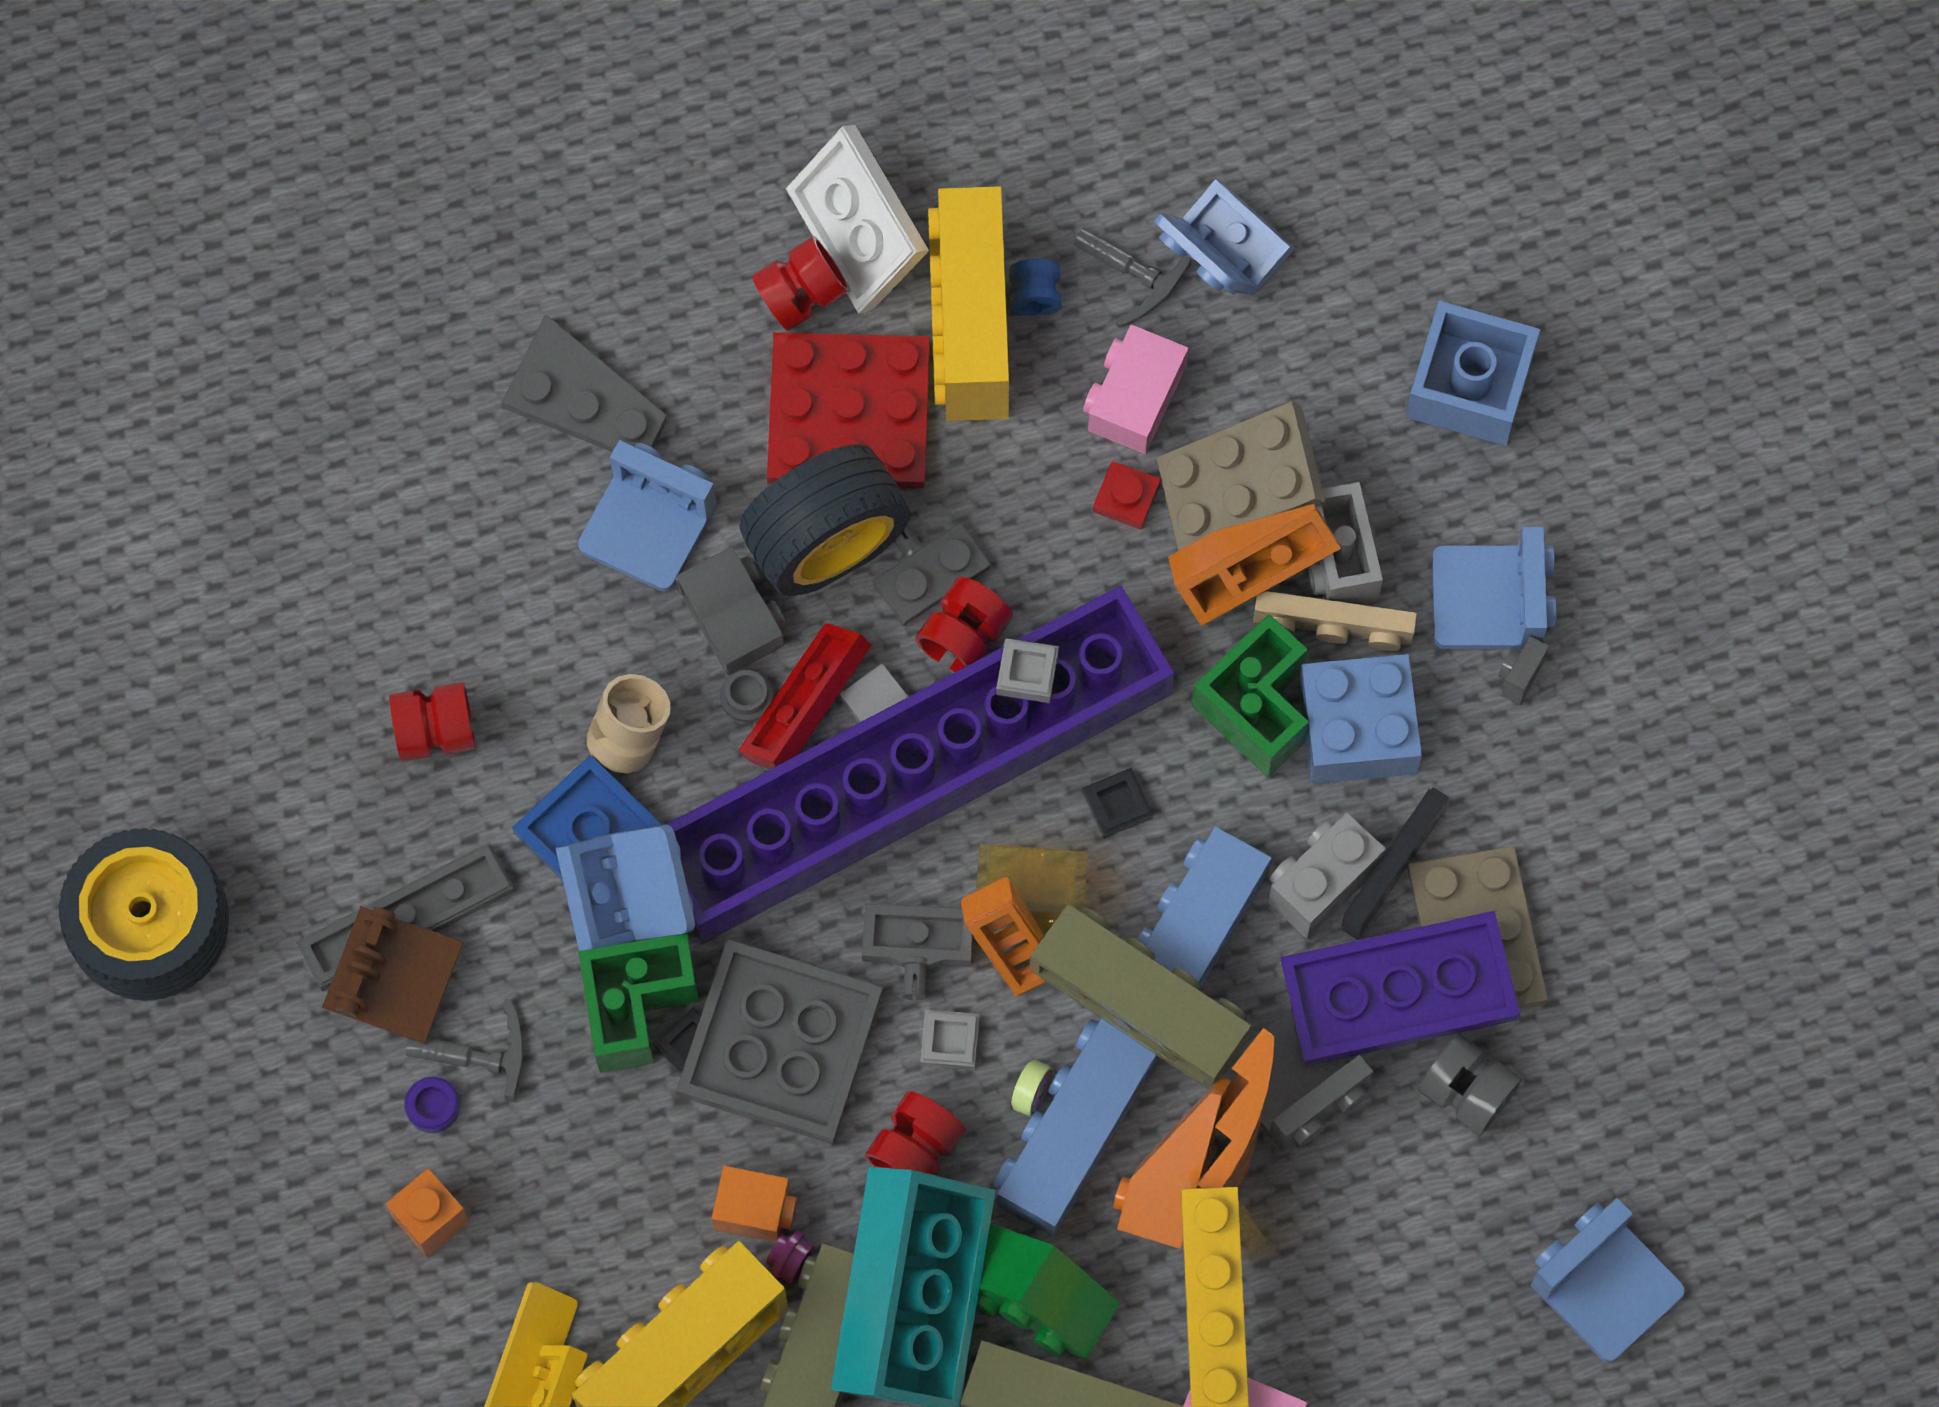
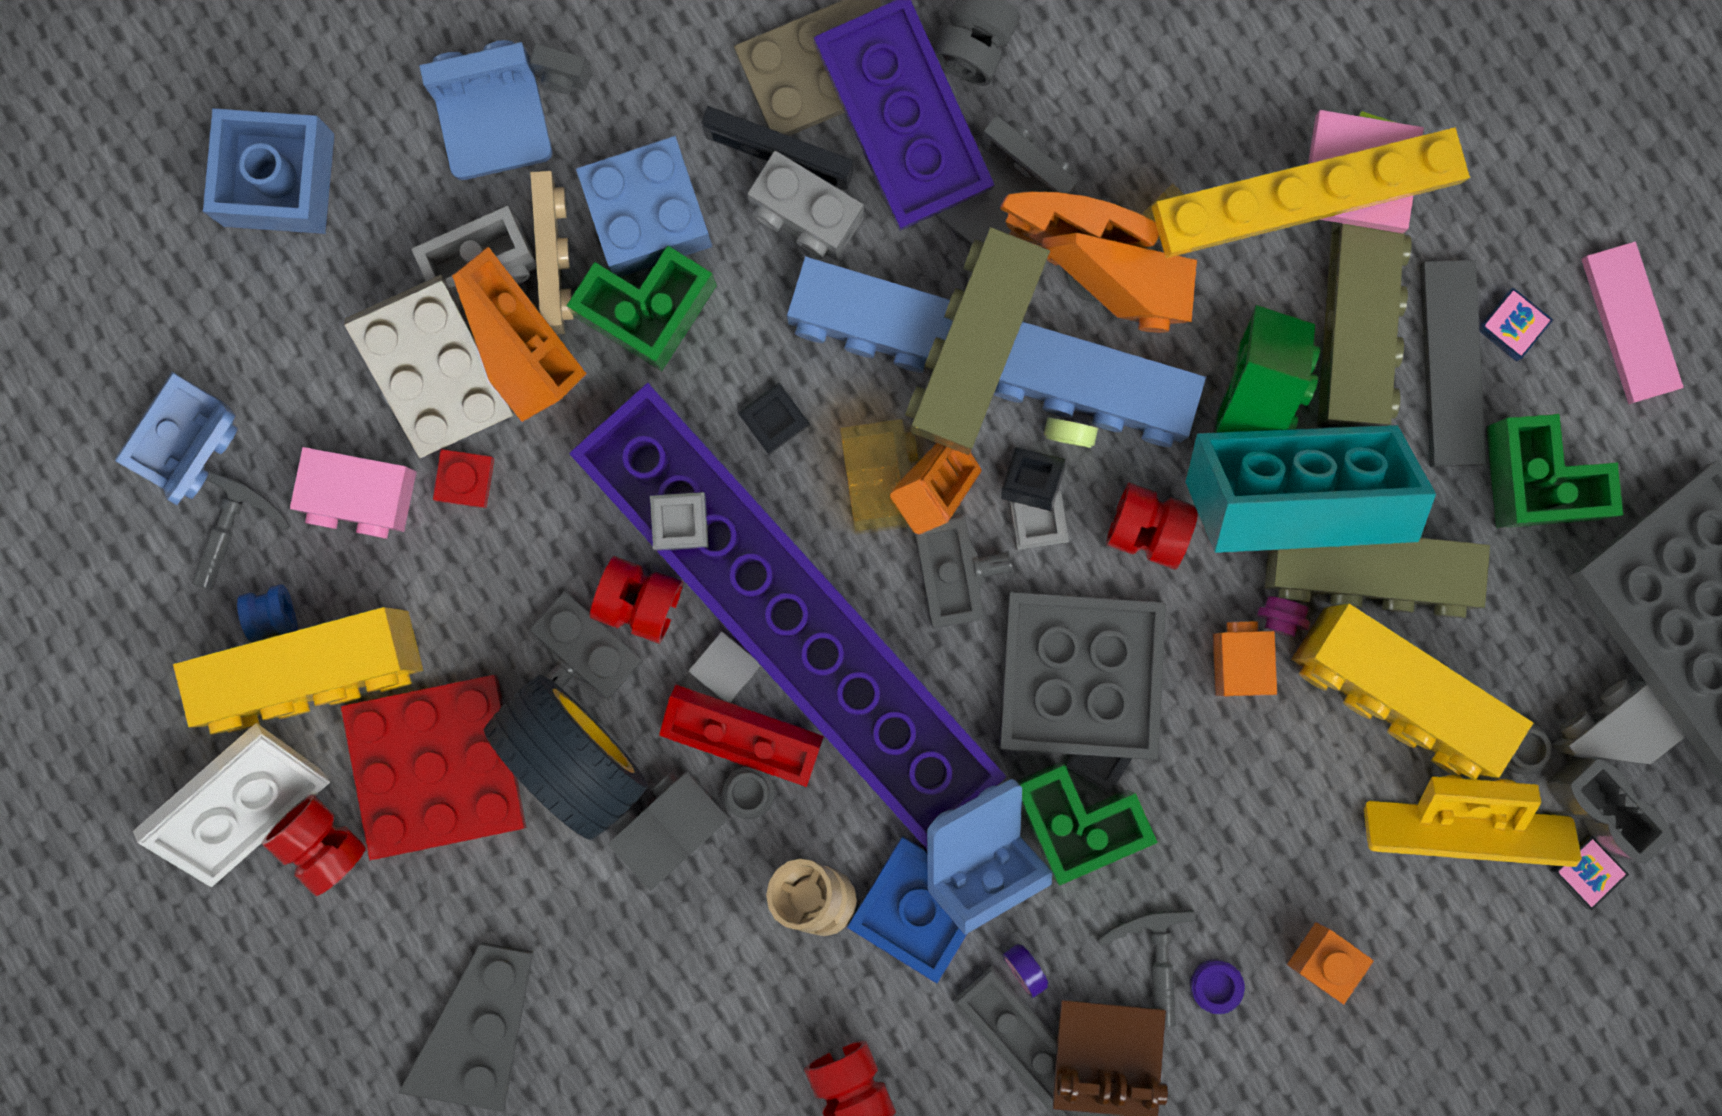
camera: 105 degrees left, 15 degrees up
(501, 917) = (1026, 970): none -> dark purple tile
(648, 516) = (591, 934): medium blue bracket -> none
(993, 1040) = (1033, 479): none -> black tile

